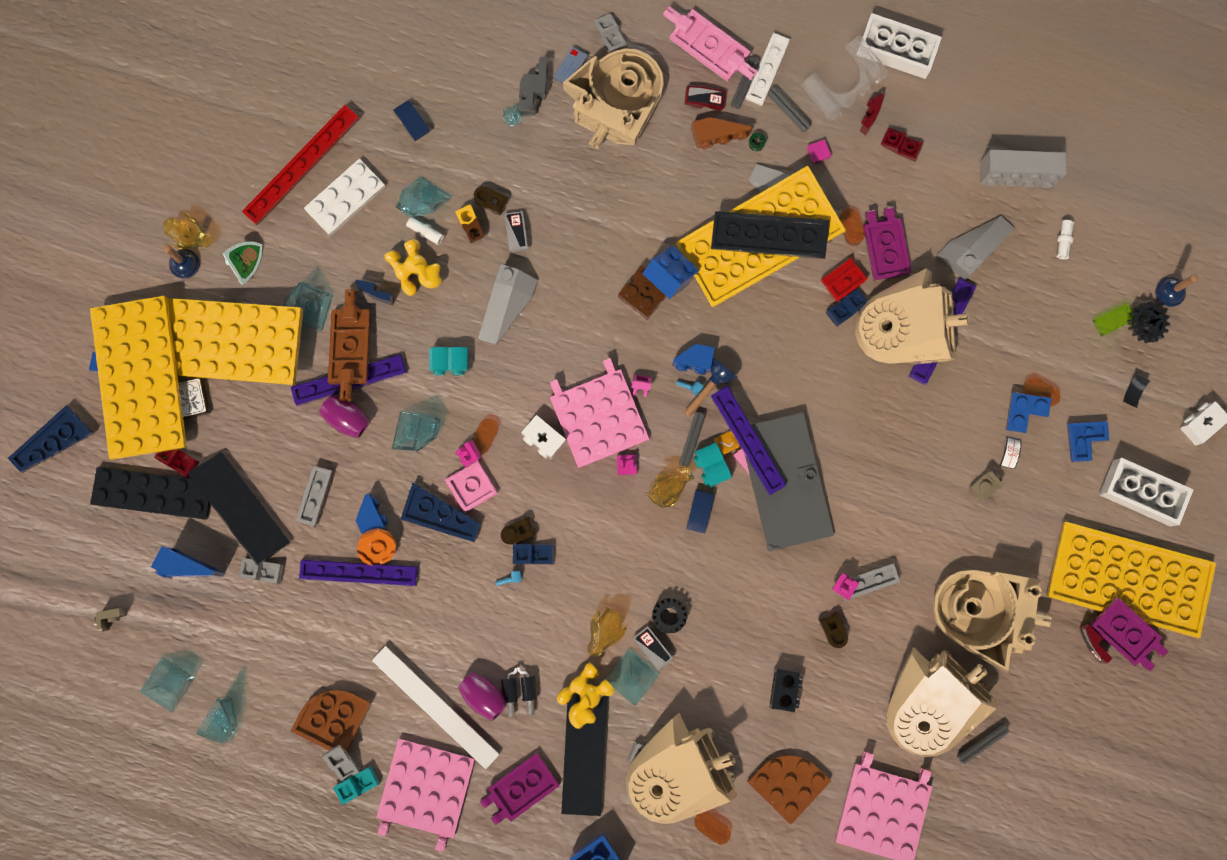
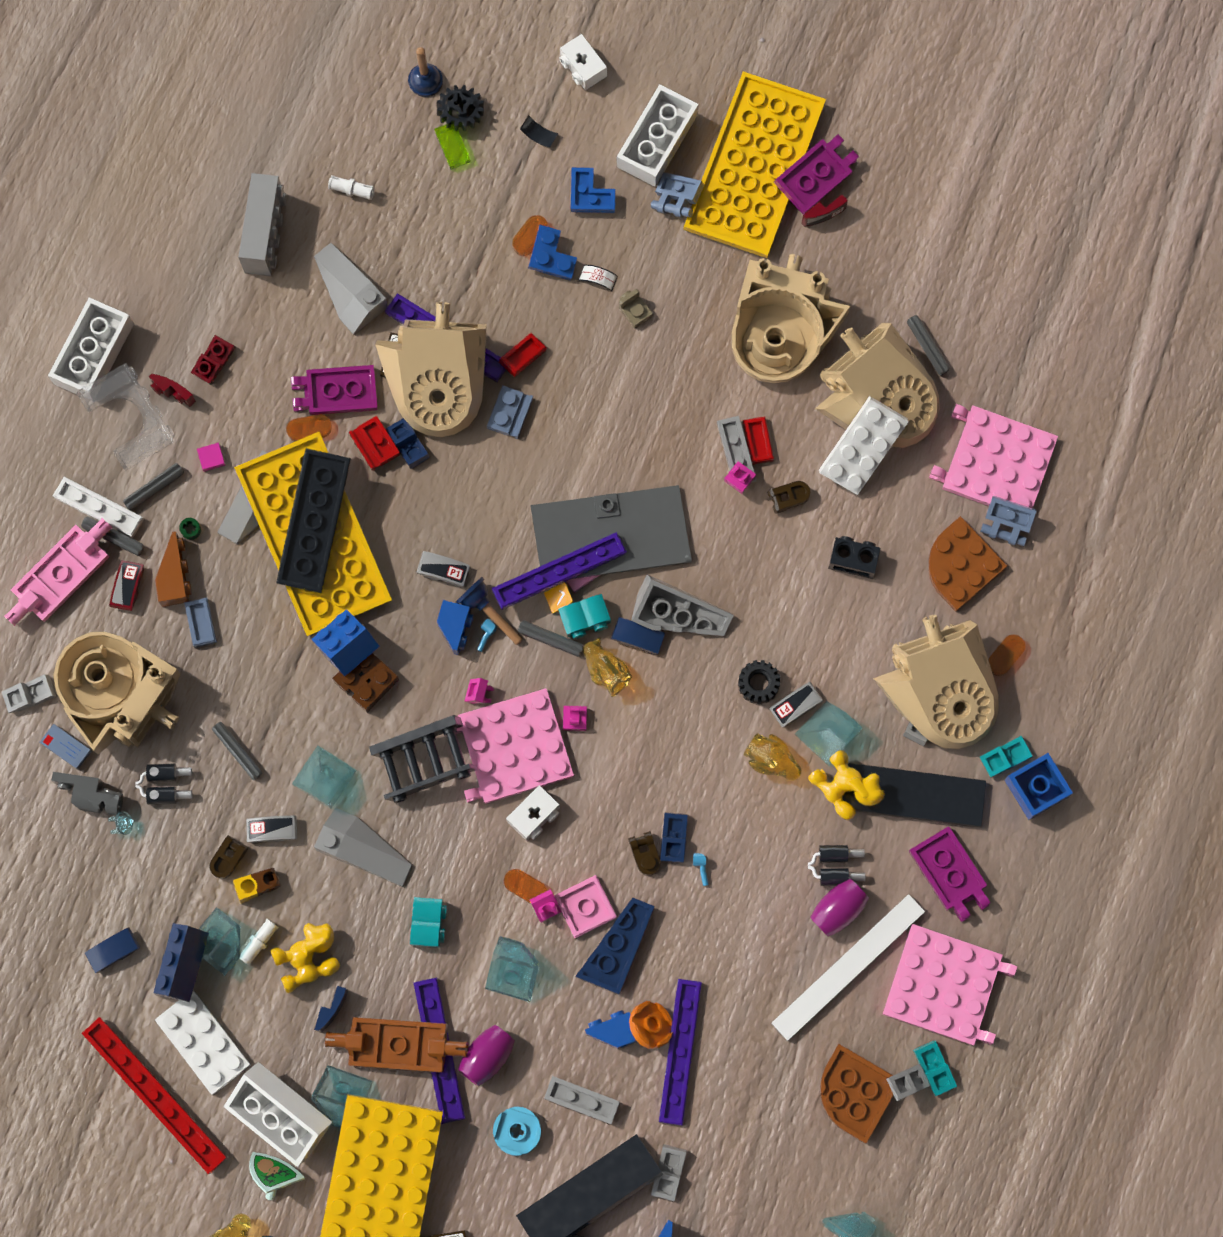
camera: 80 degrees left, 5 degrees down
(281, 438) = (525, 1142): none -> medium azure plate
(287, 258) = (277, 1114): none -> white brick
(401, 170) = (181, 962): none -> dark blue slope
(554, 142) = (163, 795): none -> black piece
(561, 268) = (324, 777): none -> clear light blue slope
(577, 198) = (237, 751): none -> dark grey axle
(591, 329) = (405, 743): none -> black fence
(623, 832) = (1006, 756): none -> teal slope
(680, 159) = (200, 622): none -> sand blue tile
(725, 538) = (672, 609): none -> light grey wedge
(742, 346) = (442, 568): none -> slope
(836, 824) = (1009, 514): none -> sand blue plate
(880, 600) = (758, 440): none -> red tile
(883, 389) = (510, 412): none -> sand blue plate
(883, 691) = (863, 445): none -> white plate
(934, 394) = (522, 355): none -> red tile
(1099, 515) = (679, 188): none -> sand blue plate

